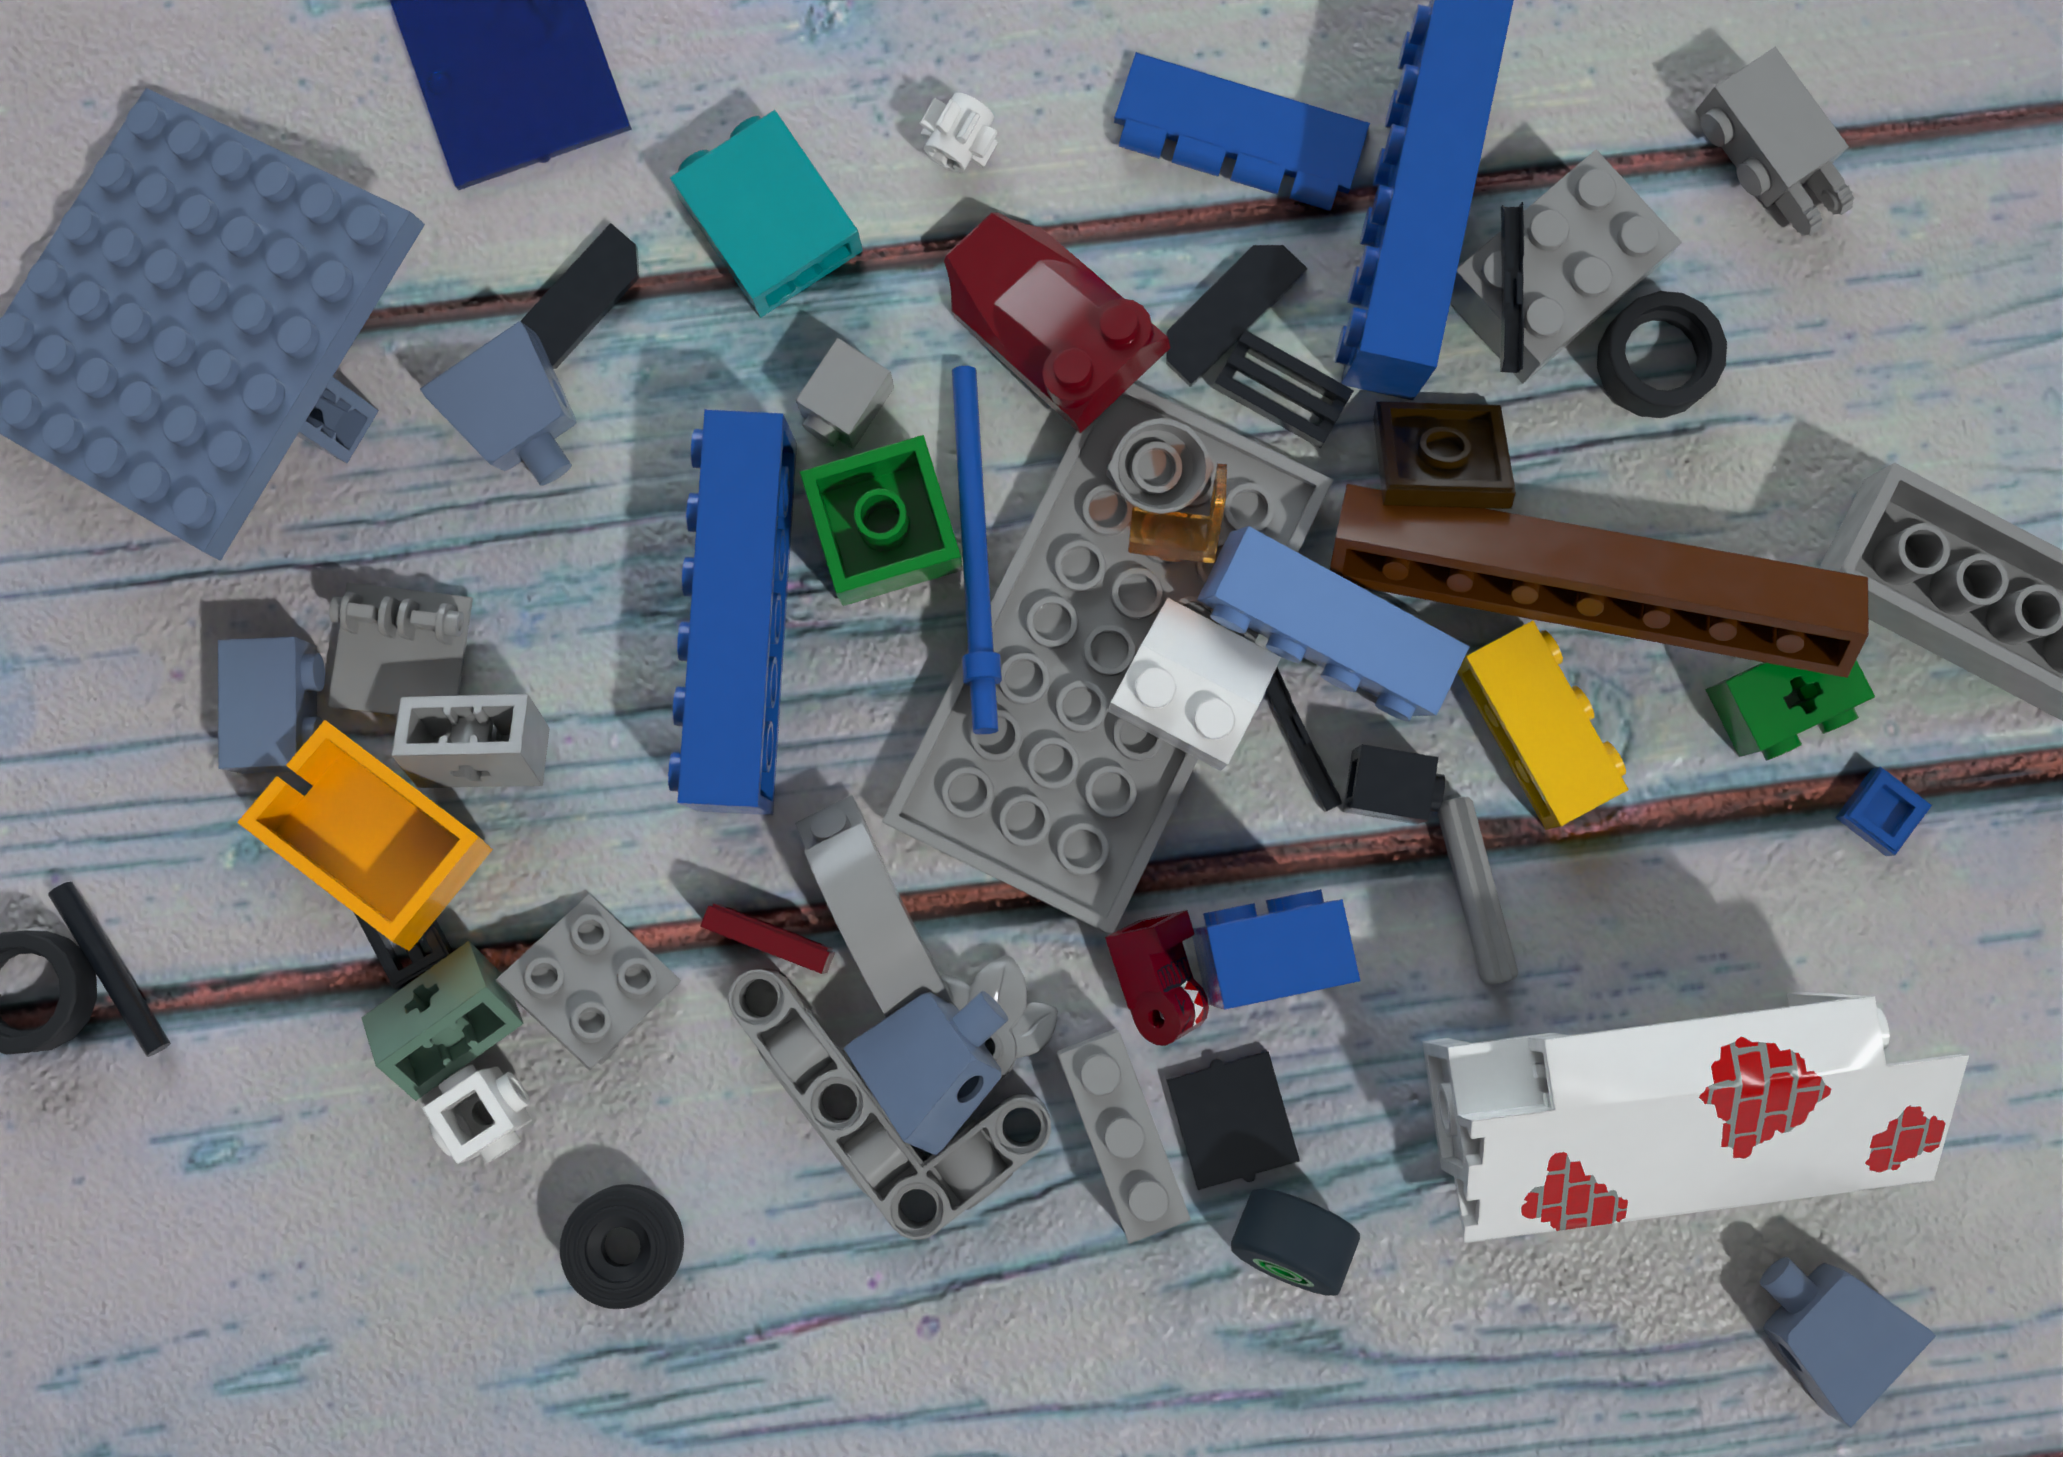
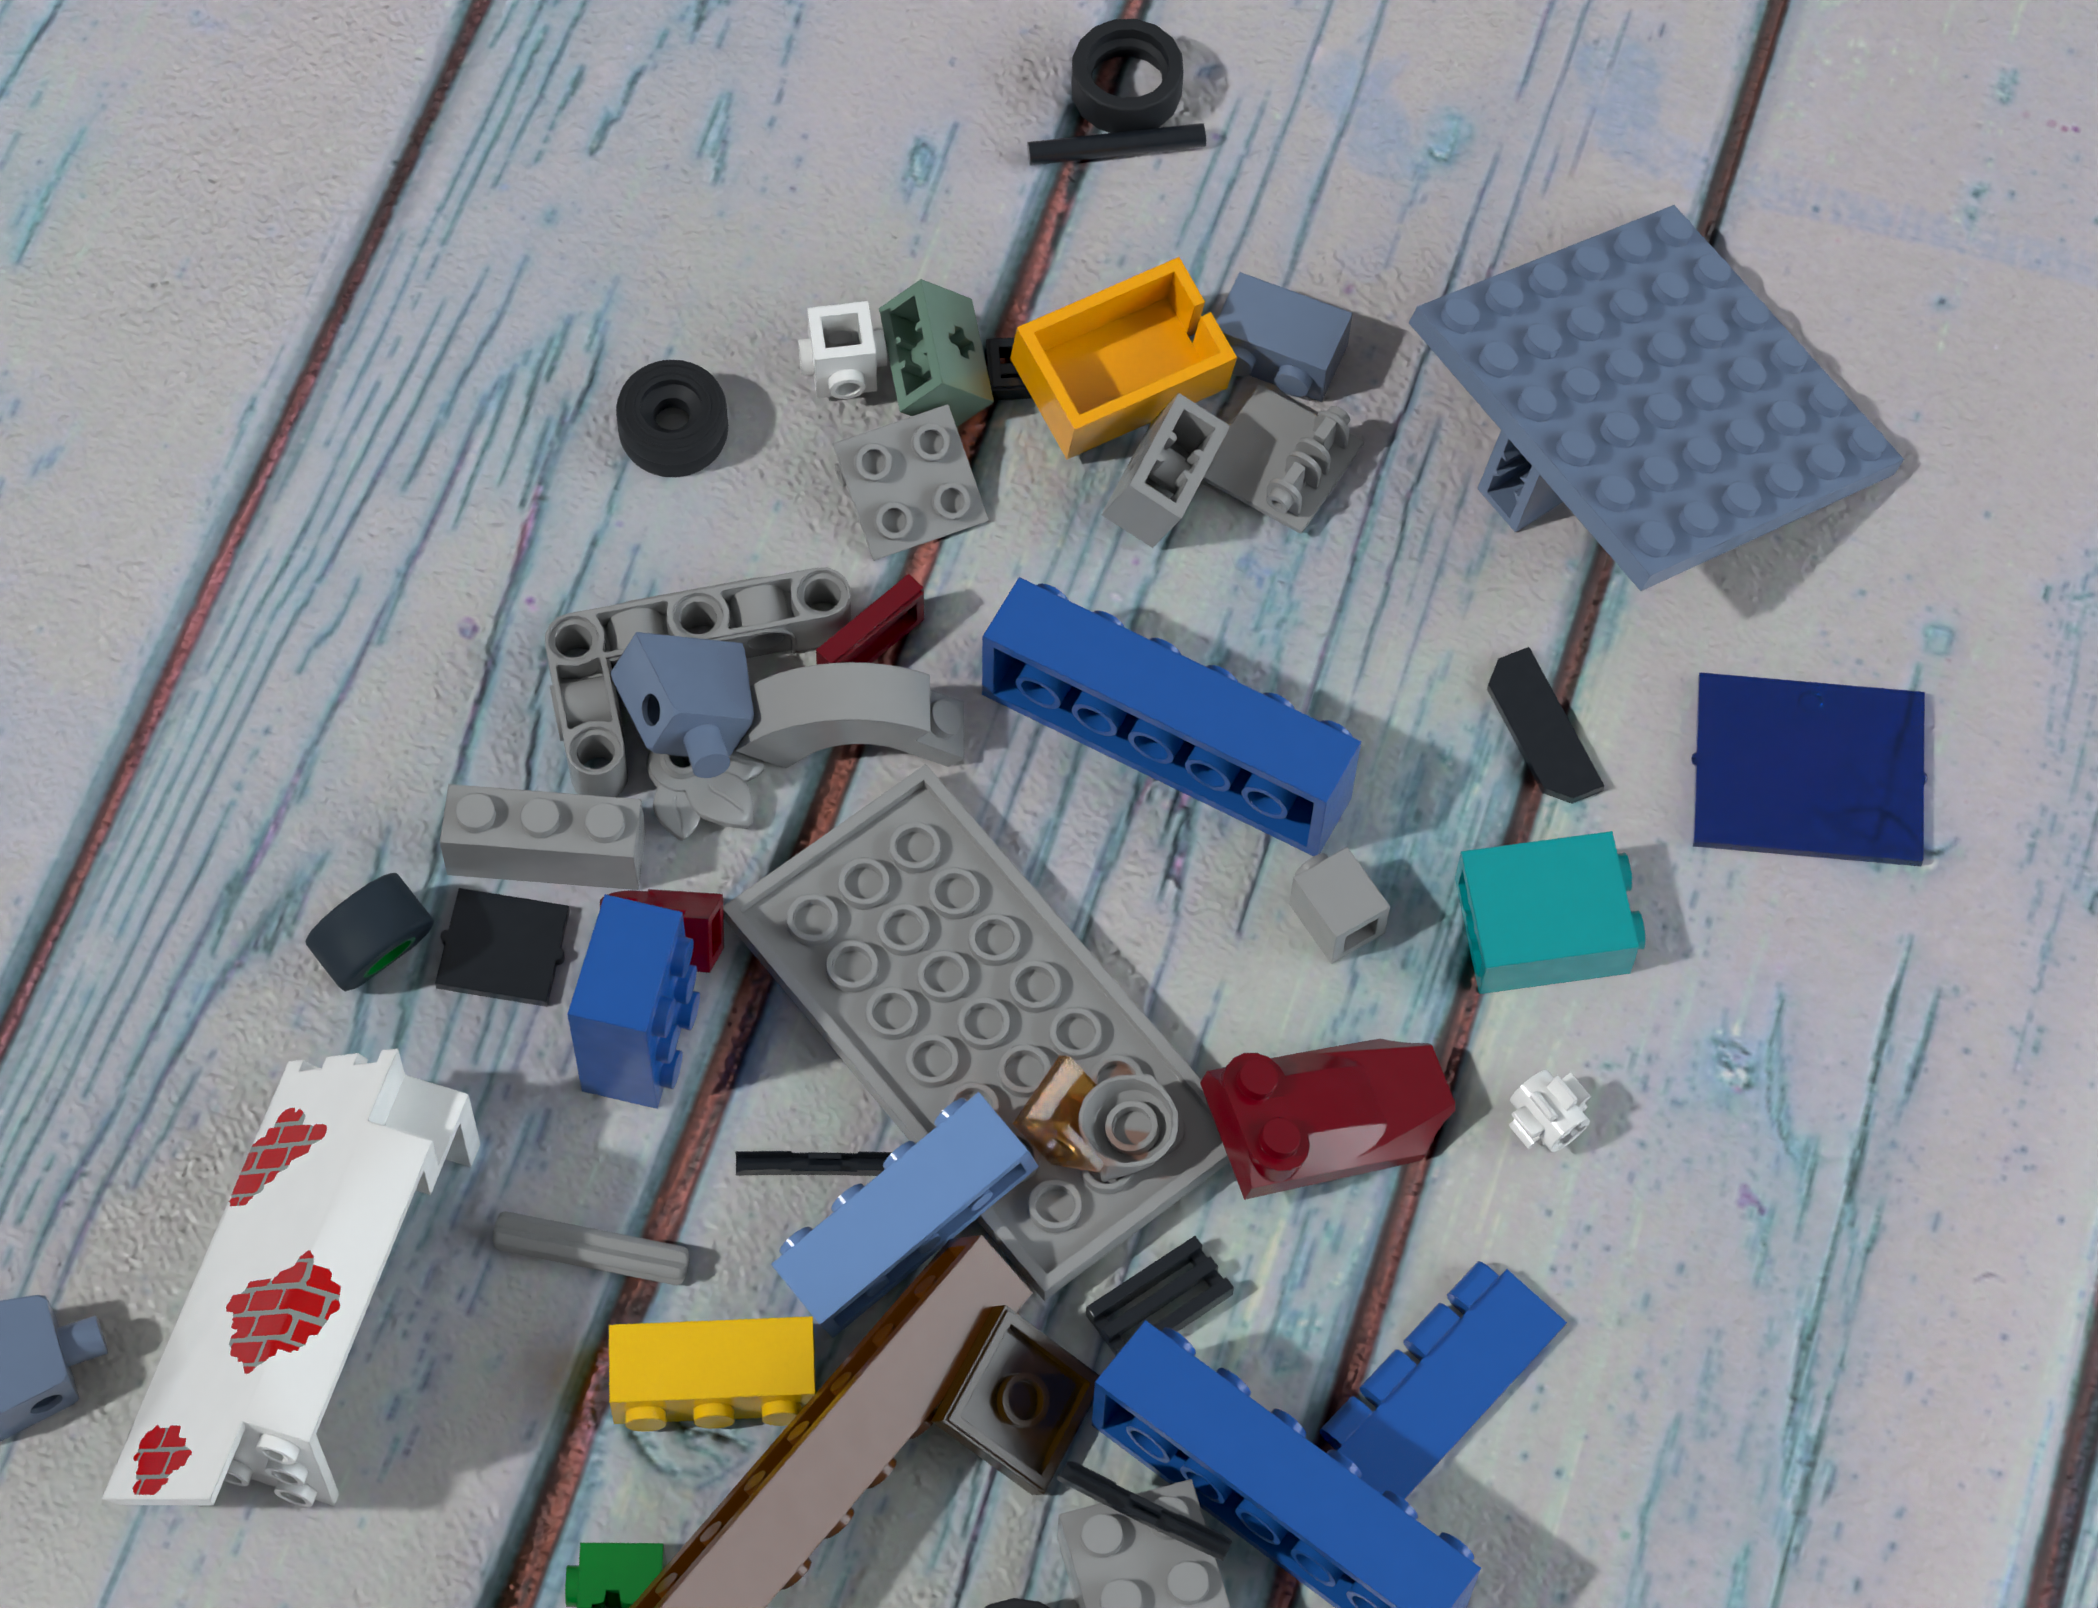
camera: 115 degrees right, 20 degrees down
(508, 404) = (1461, 623): sand blue torso -> none
(882, 520) = (1198, 876): green brick -> none
(981, 664) = (1022, 897): blue bar -> none
(1194, 684) = (908, 1057): white slope -> none
(1230, 308) = (1264, 1294): black piece -> none
(1393, 785) = (728, 1210): black brick -> none

